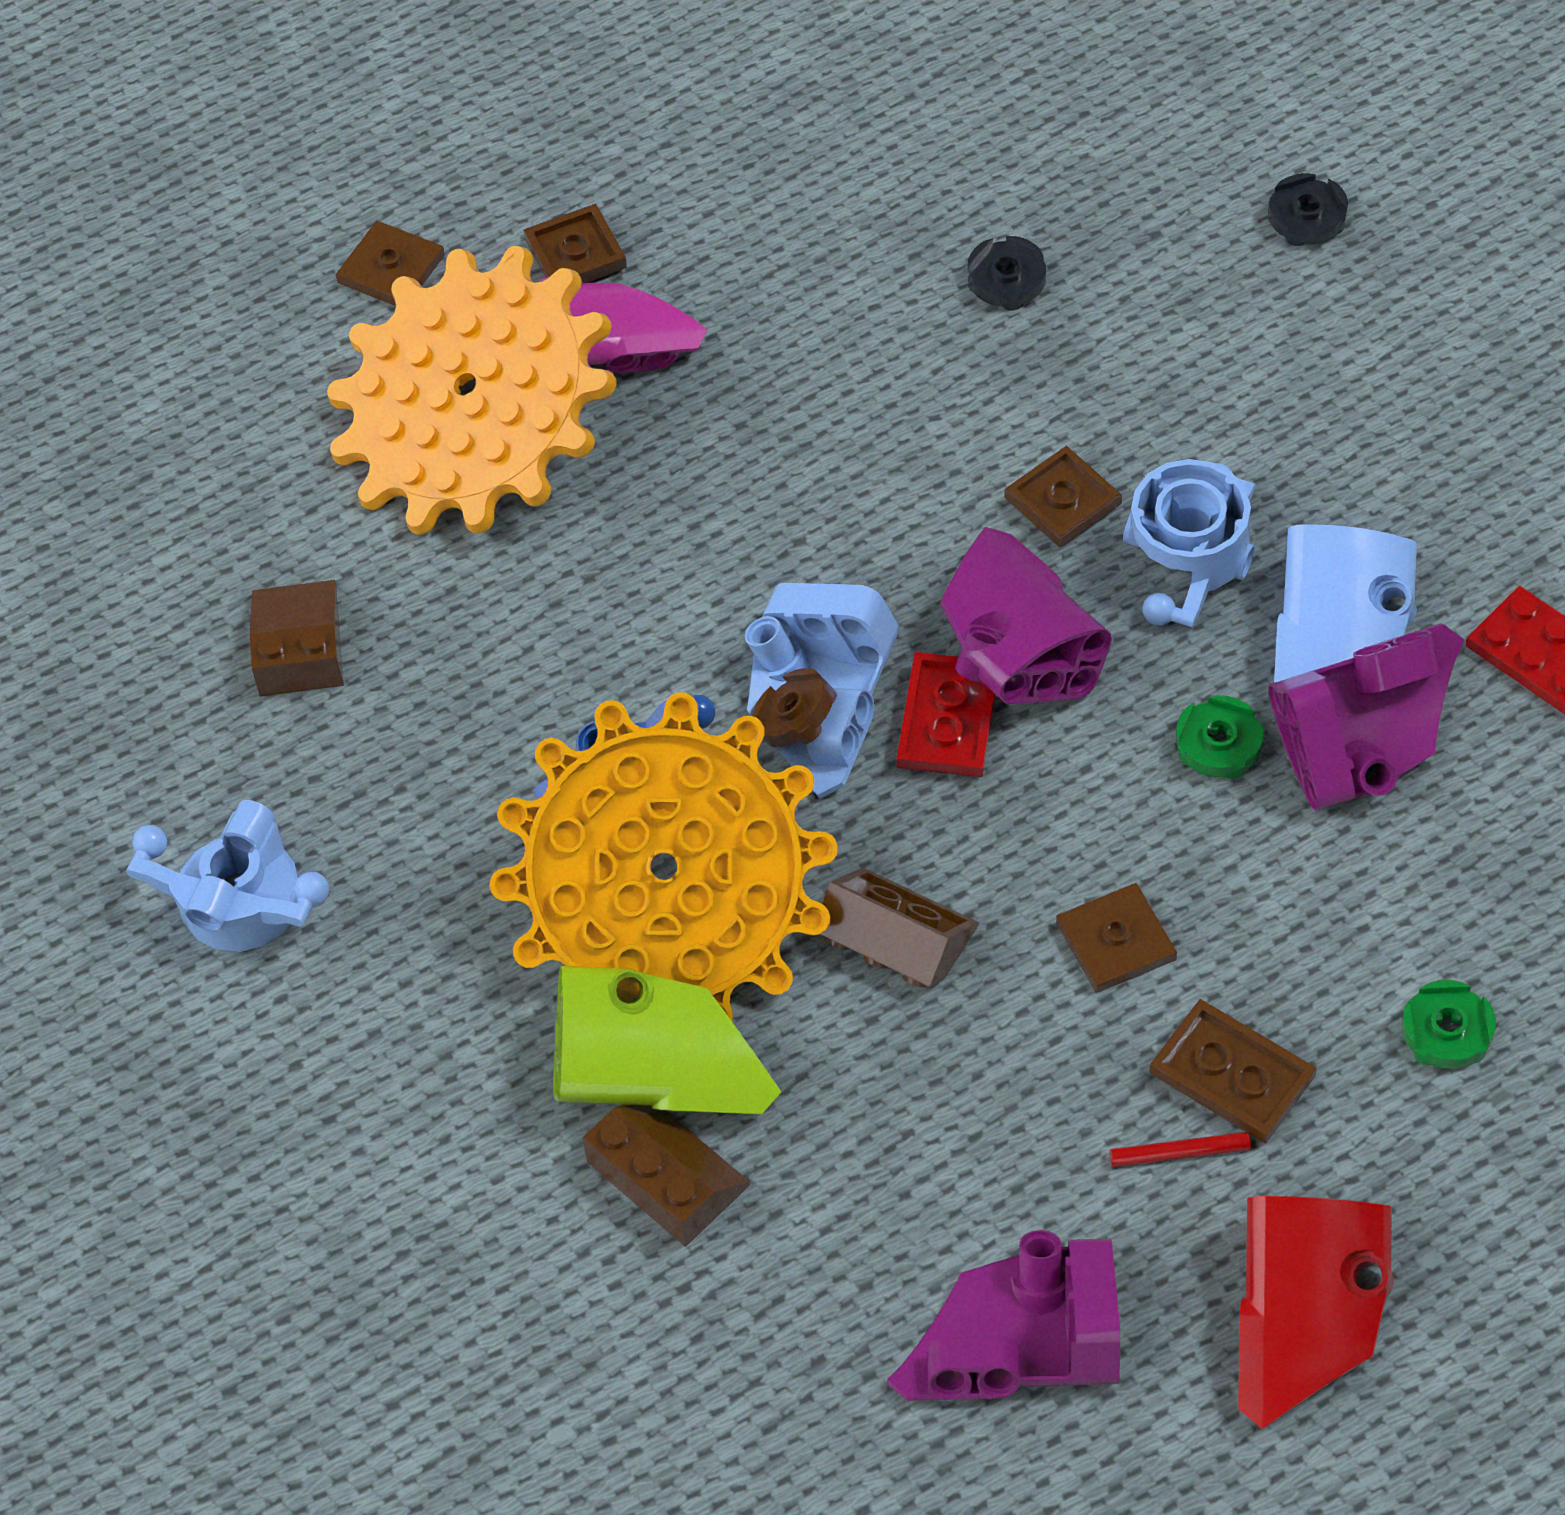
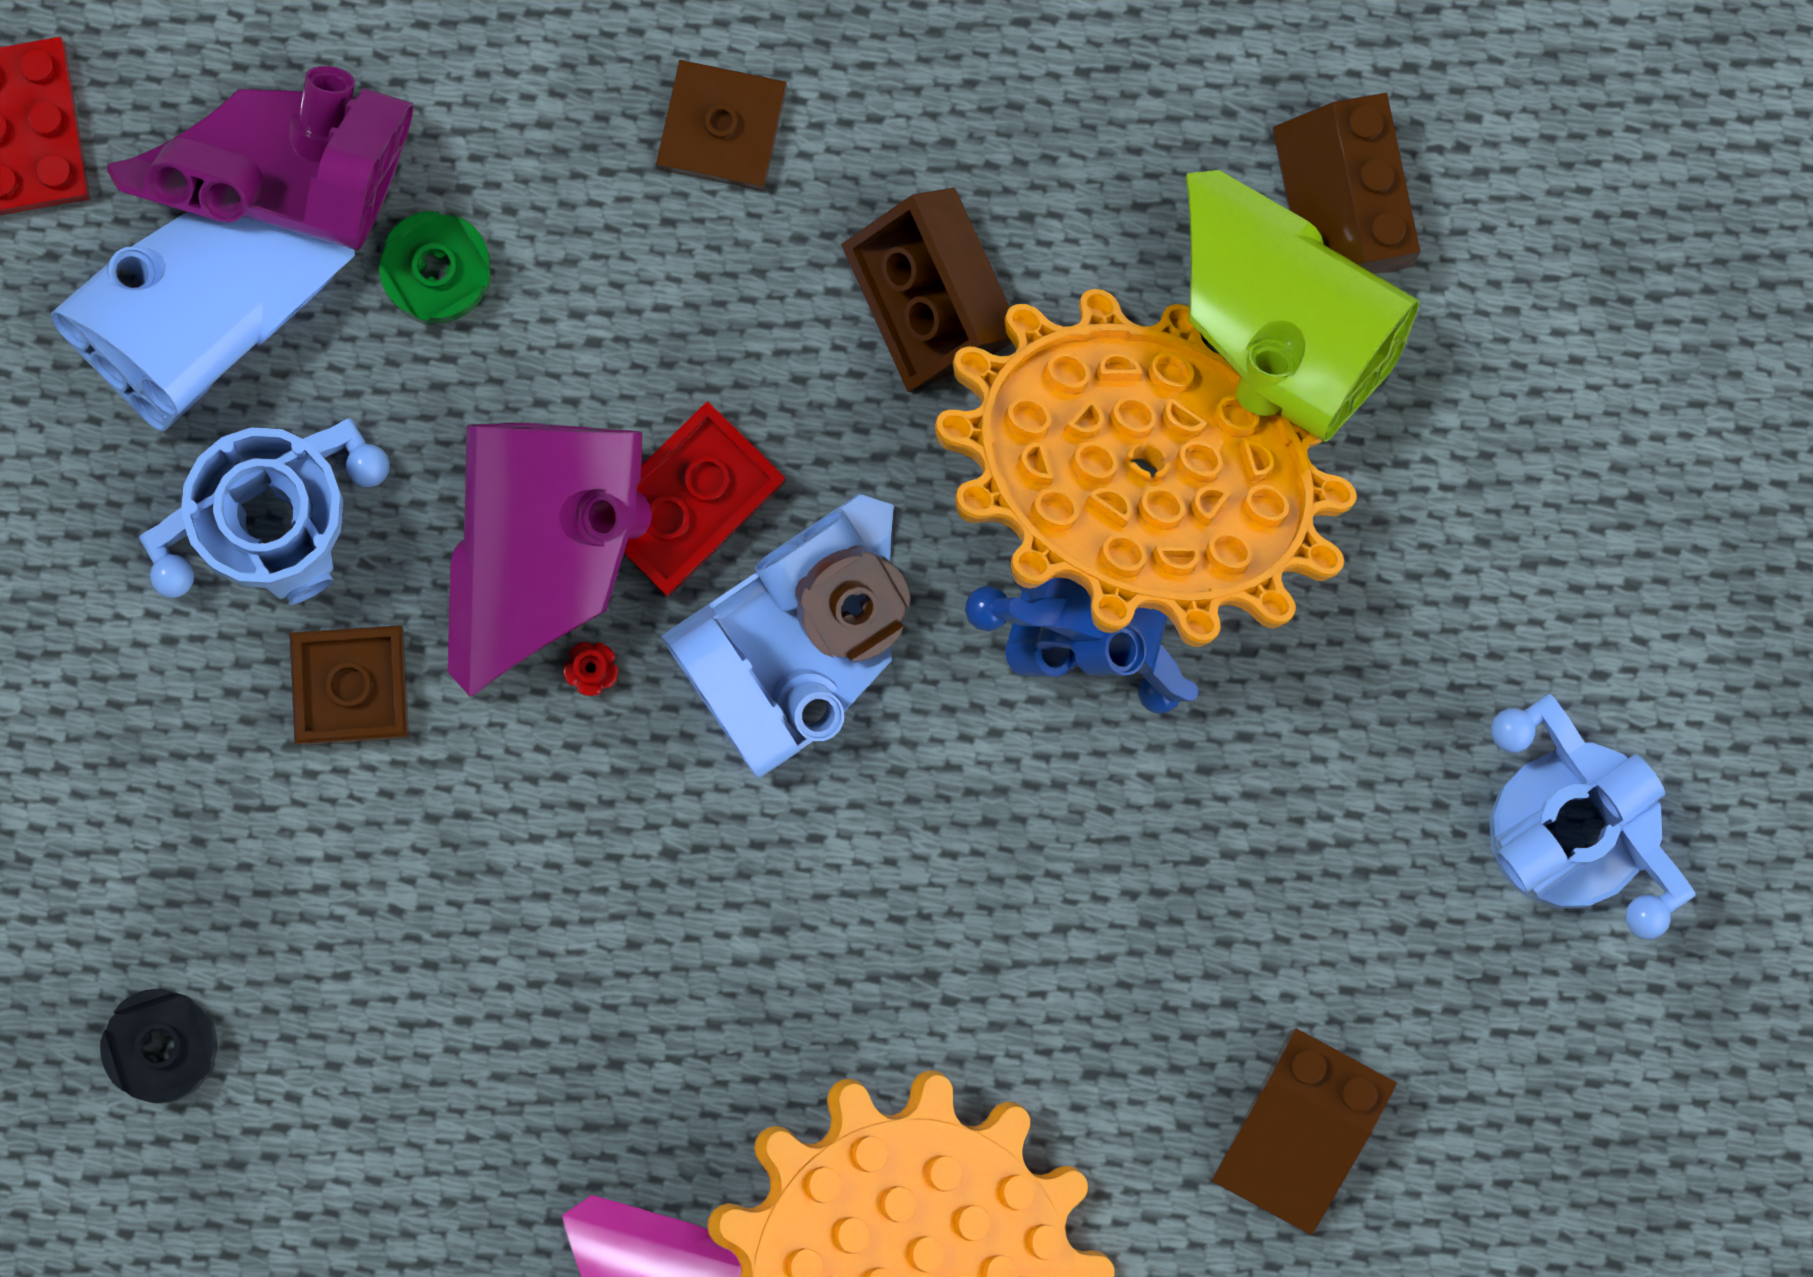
camera: 150 degrees left, 25 degrees up
(925, 603) = (591, 683): none -> red plate

